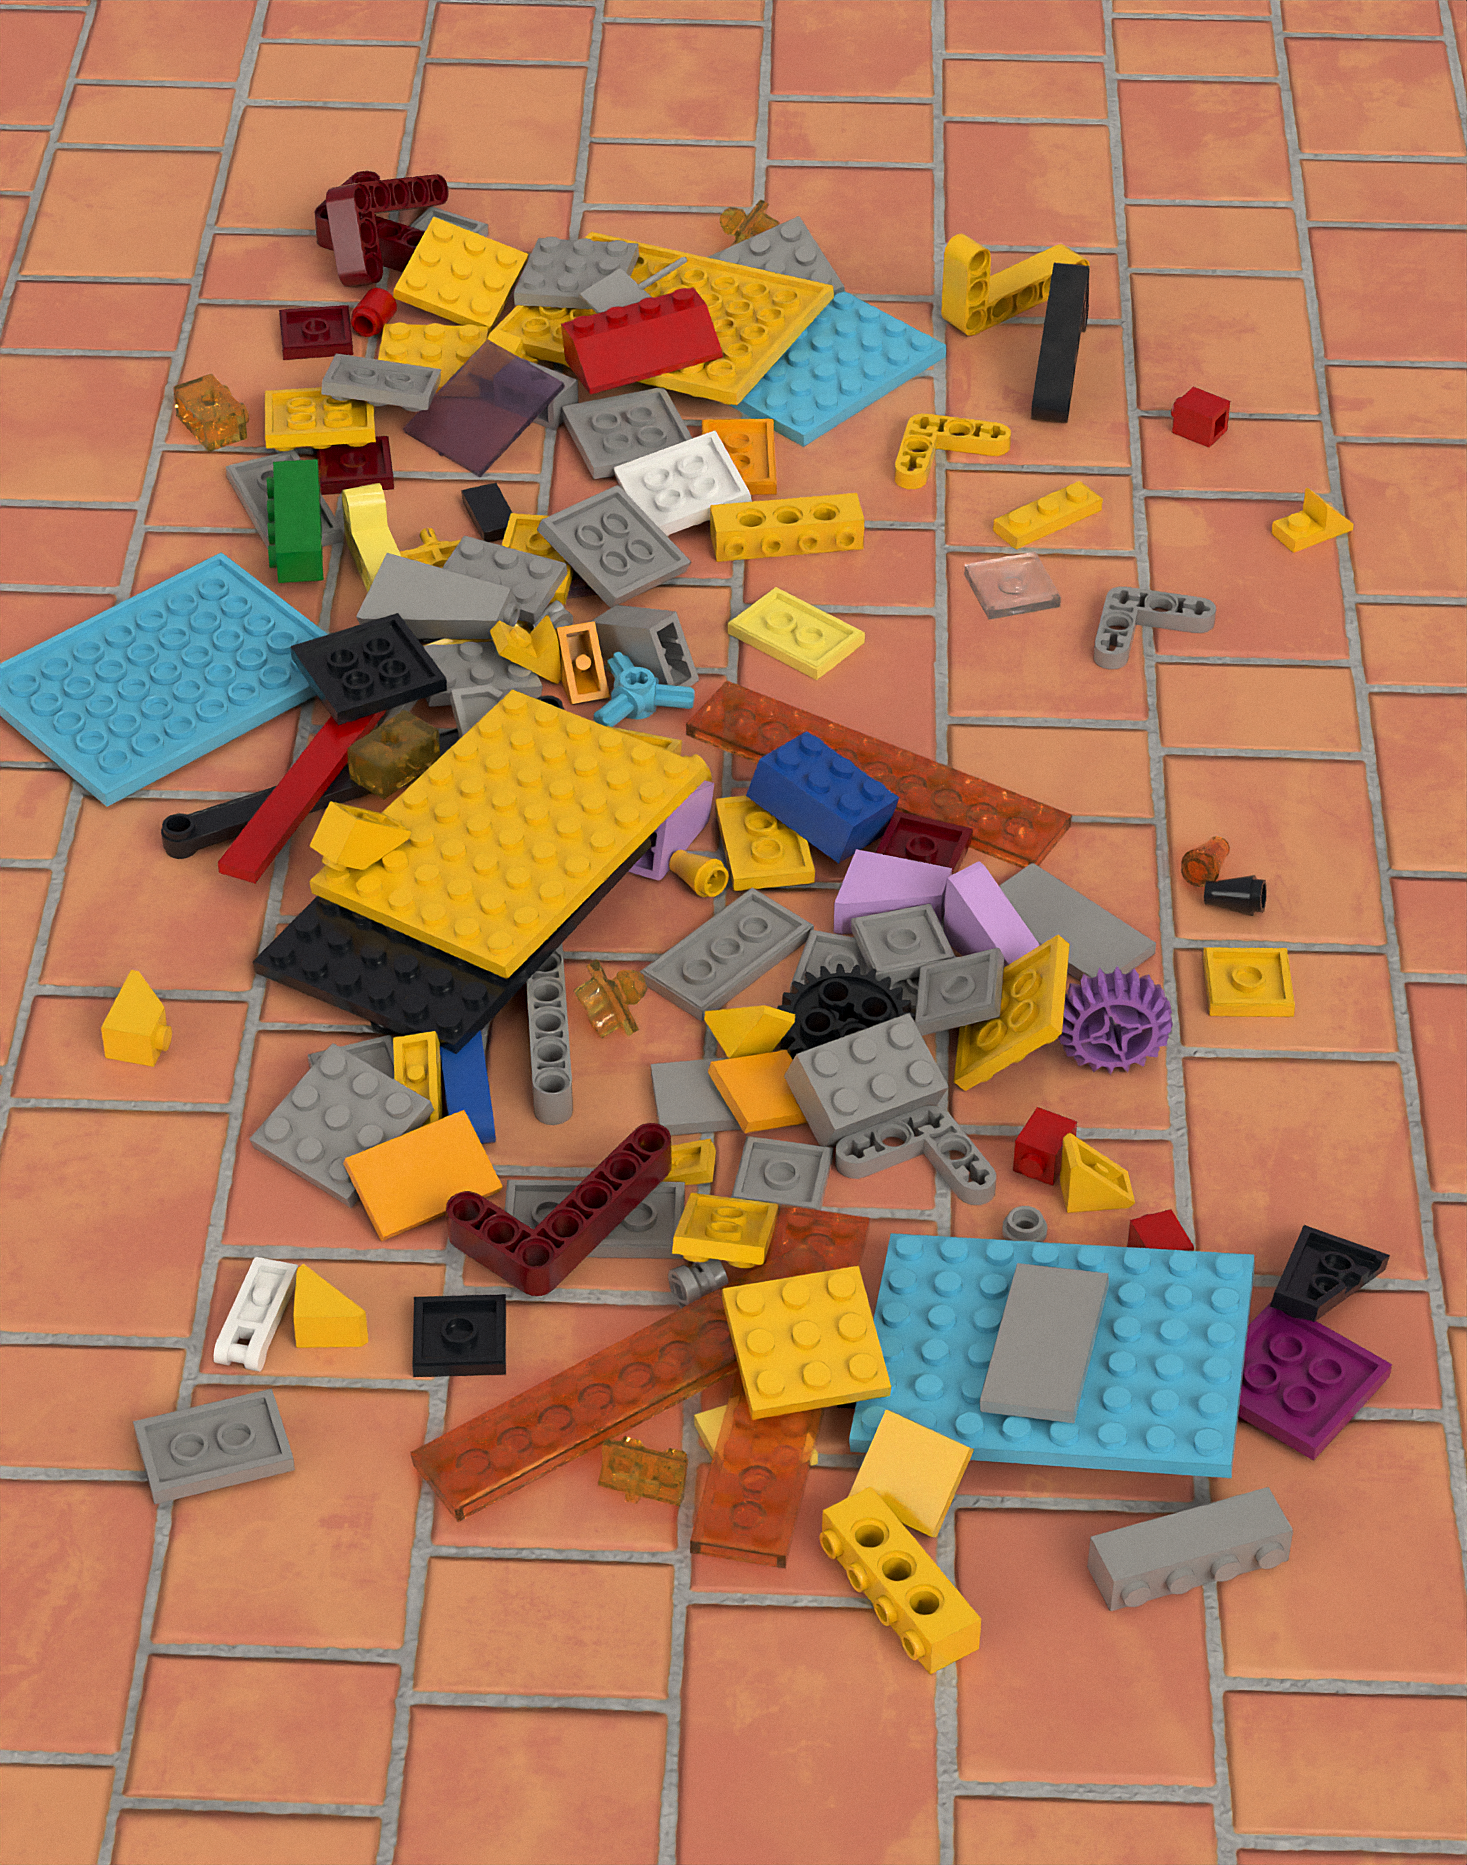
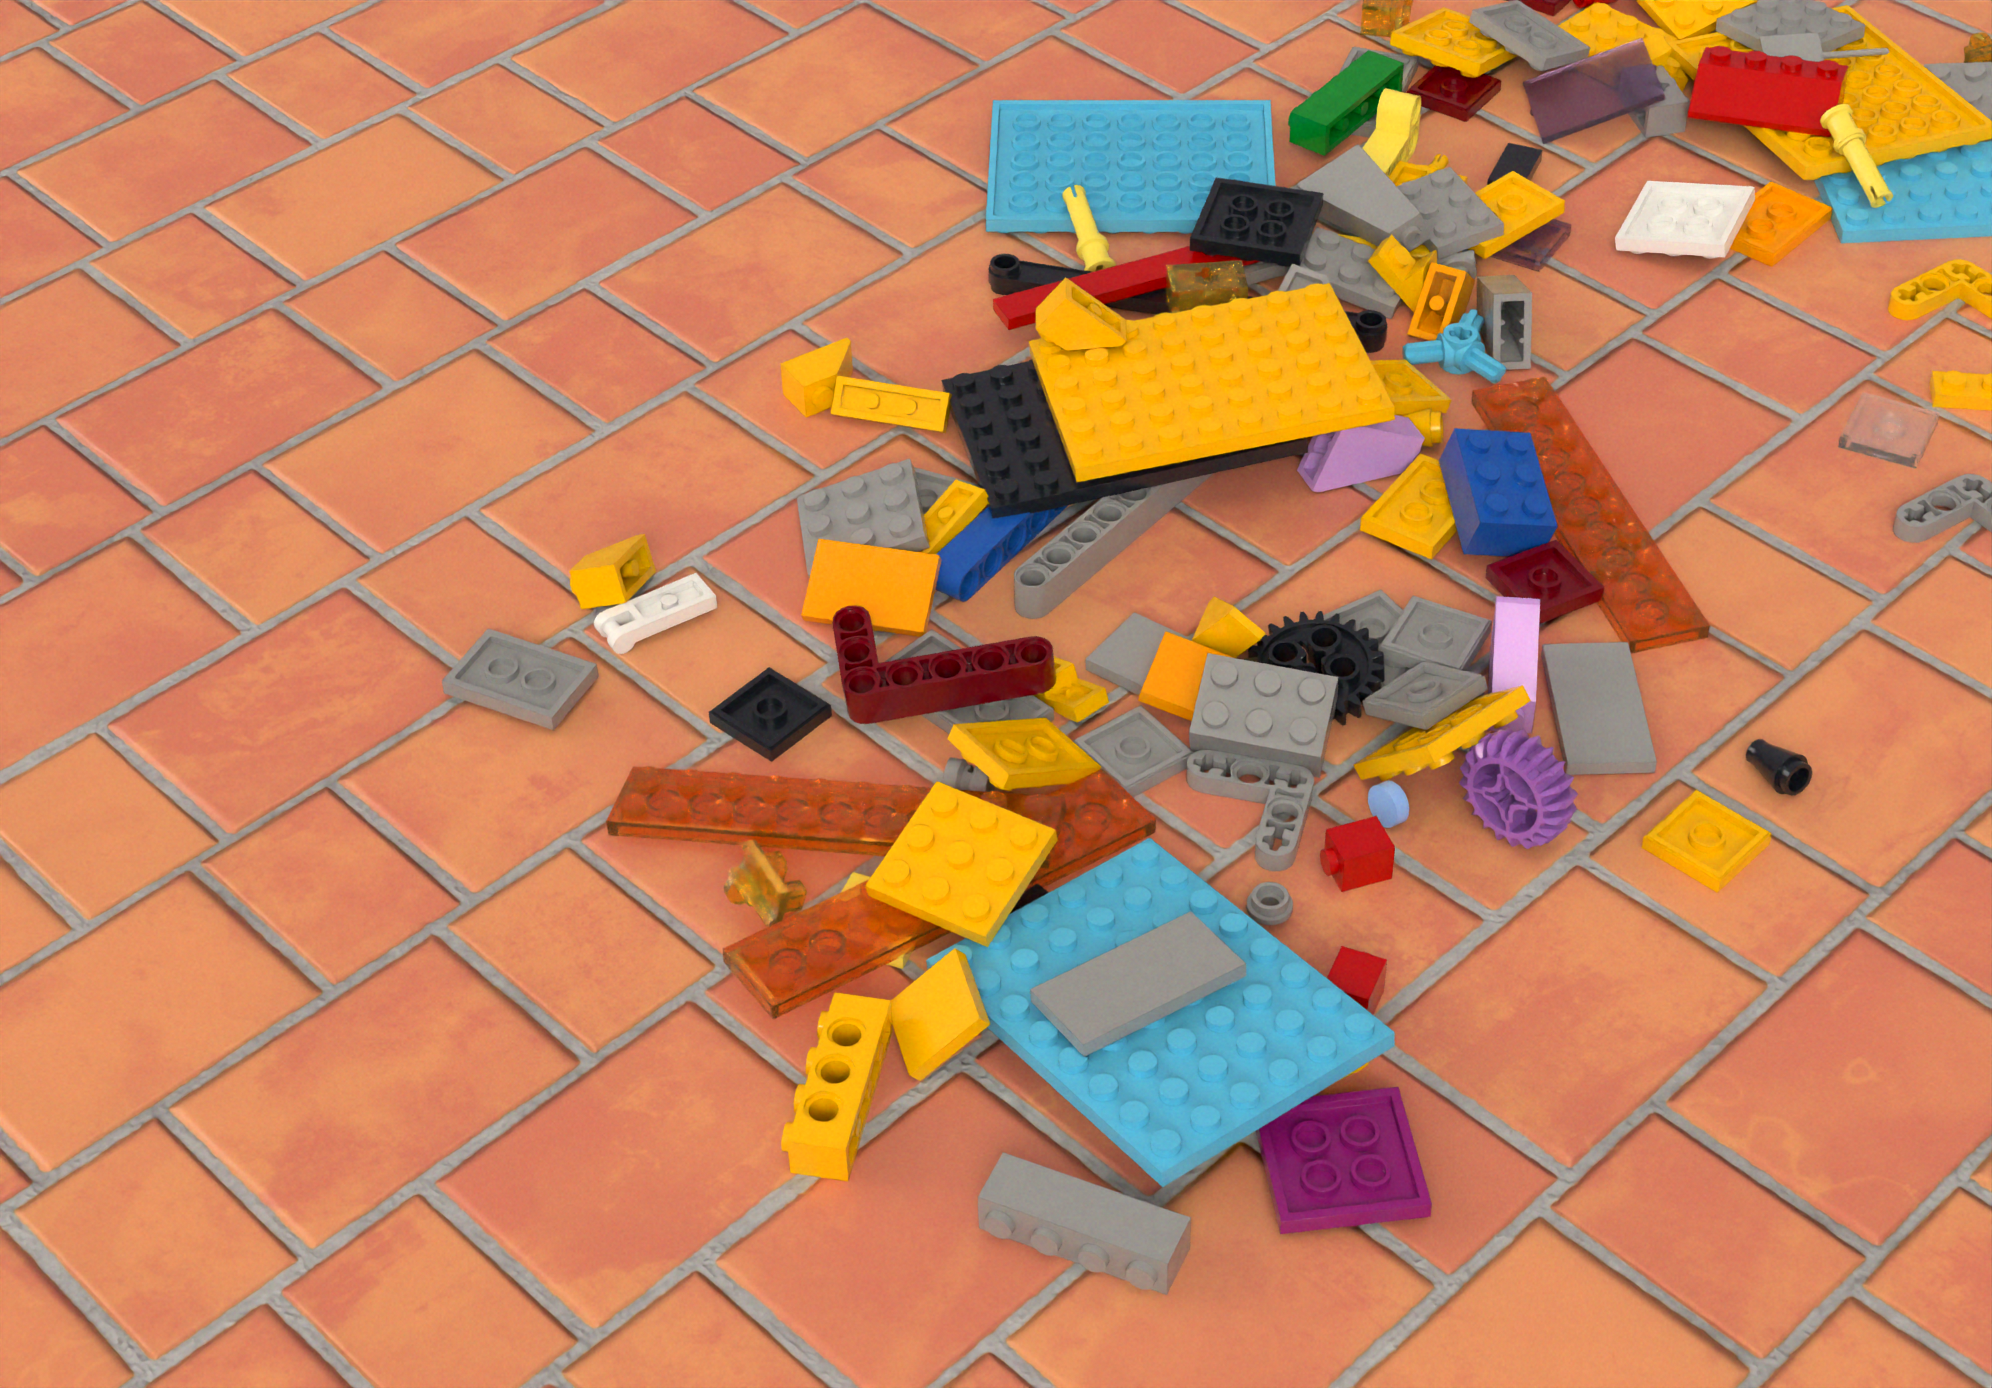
camera: 45 degrees right, 0 degrees up
(183, 1305) = (612, 573): none -> yellow slope
(231, 768) = (1091, 245): none -> light yellow pin
(231, 1008) = (891, 404): none -> yellow plate
(325, 1315) = (688, 637): yellow slope -> none
(608, 999) = (1157, 544): clear yellow hips -> none
(614, 546) = (1564, 232): light grey plate -> none
(623, 428) = (1695, 156): light grey plate -> none
(703, 874) = (1345, 502): yellow cone -> none
(727, 953) = (1297, 570): light grey tile -> none
(753, 353) = (1850, 142): none -> light yellow pin
(786, 527) = (1738, 290): yellow brick -> none
(796, 633) = (1653, 373): light yellow tile -> none
(886, 884) = (1465, 583): lavender slope -> none
(1018, 1094) = (1388, 803): none -> light blue tile
(1091, 1179) = (1365, 901): yellow slope -> none
(1205, 861) = (1784, 724): clear orange cone -> none
(1324, 1273) = (1462, 1094): black wing -> none

